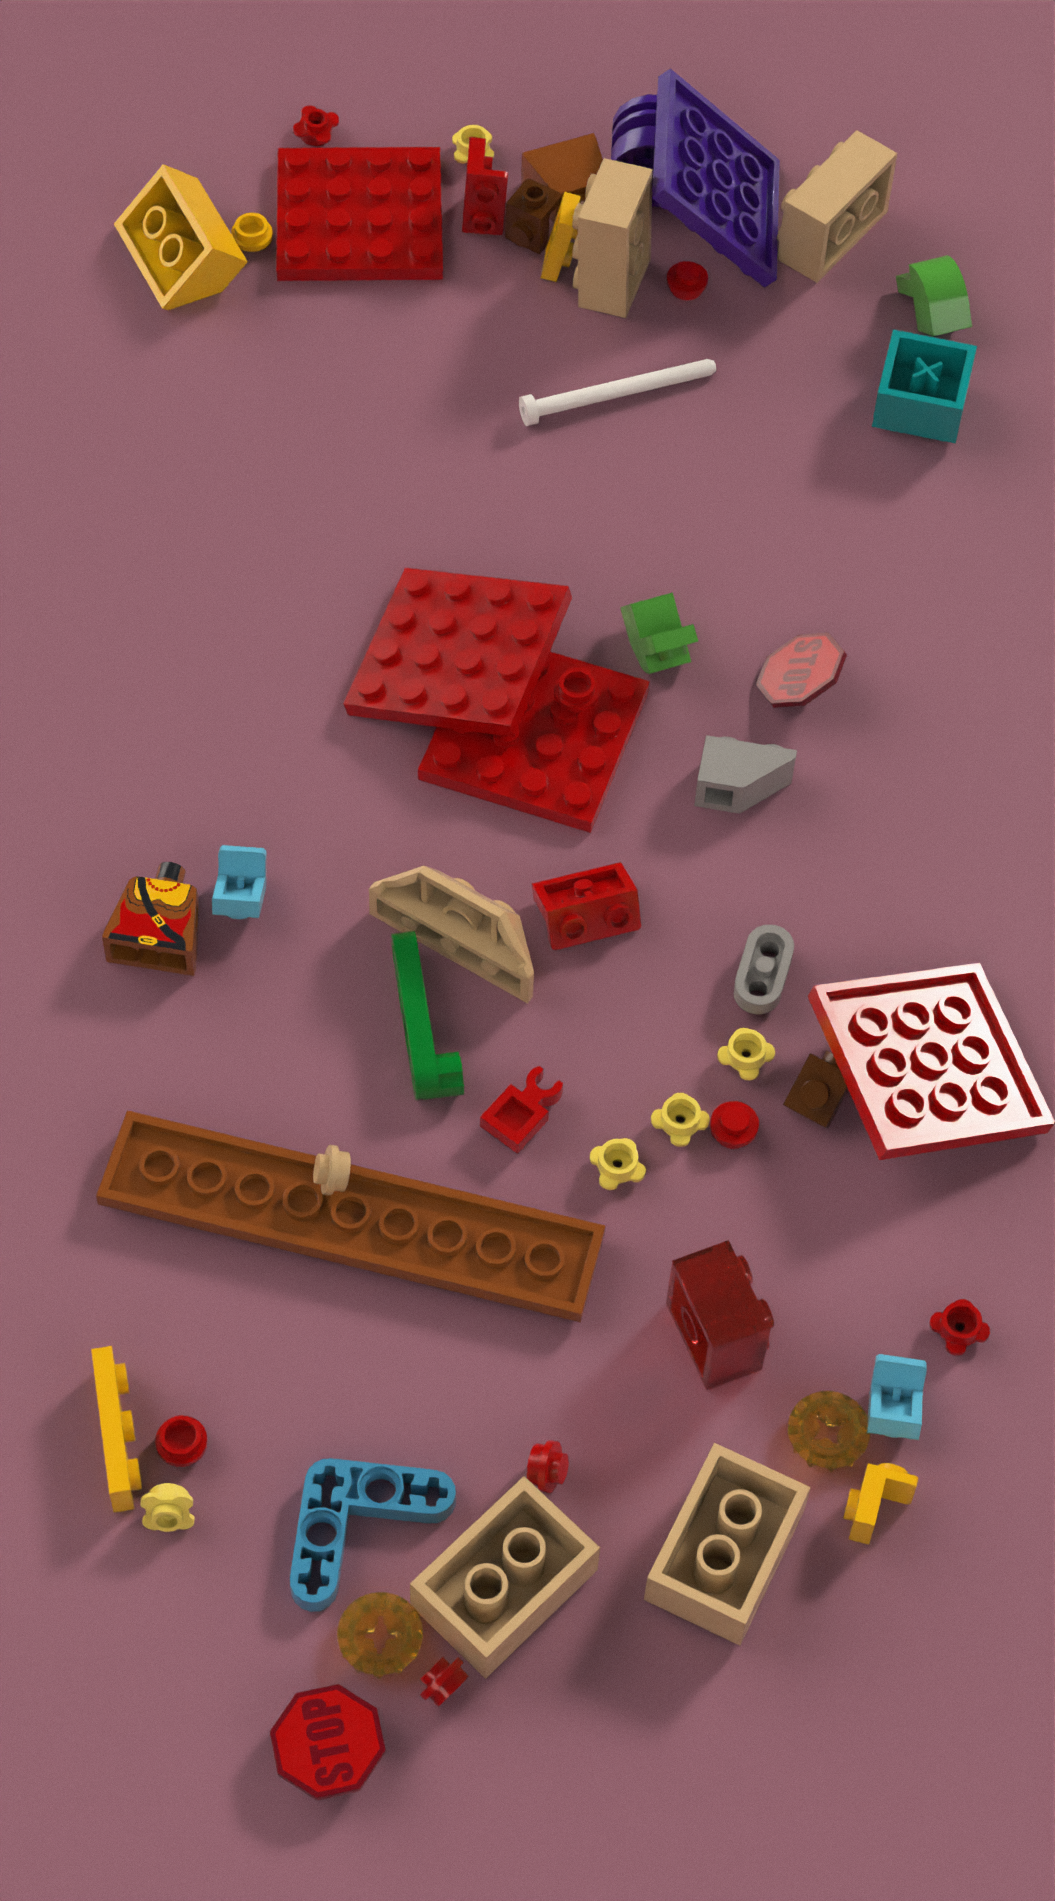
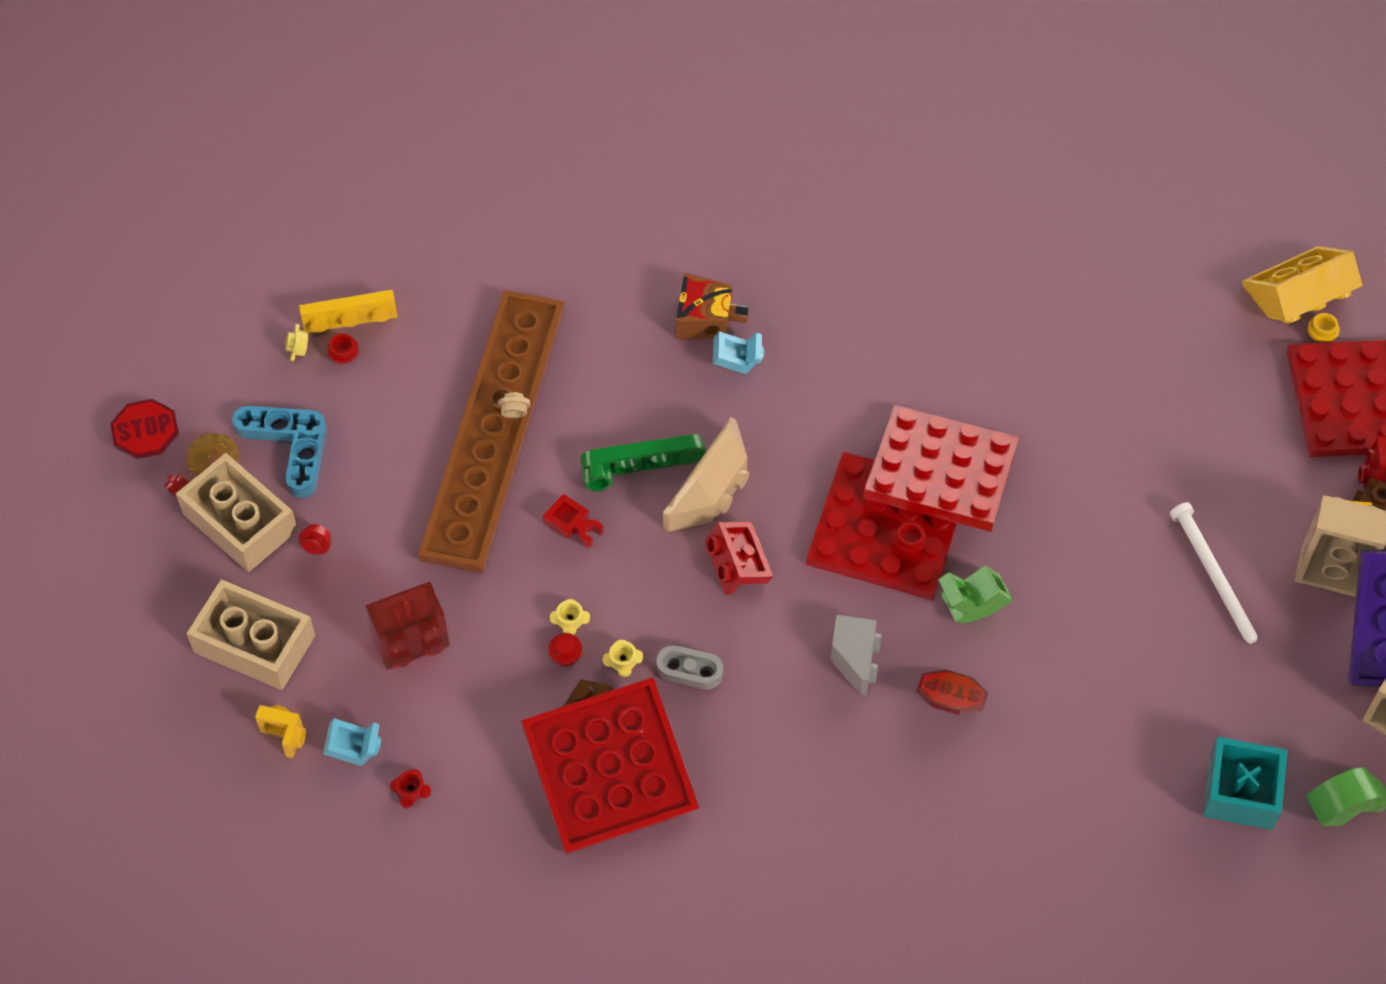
camera: 90 degrees right, 0 degrees up
(617, 1150) = (532, 571): light yellow plate -> none
(687, 280) = (1338, 620): red plate -> none
(833, 1410) = (340, 690): clear yellow gear -> none

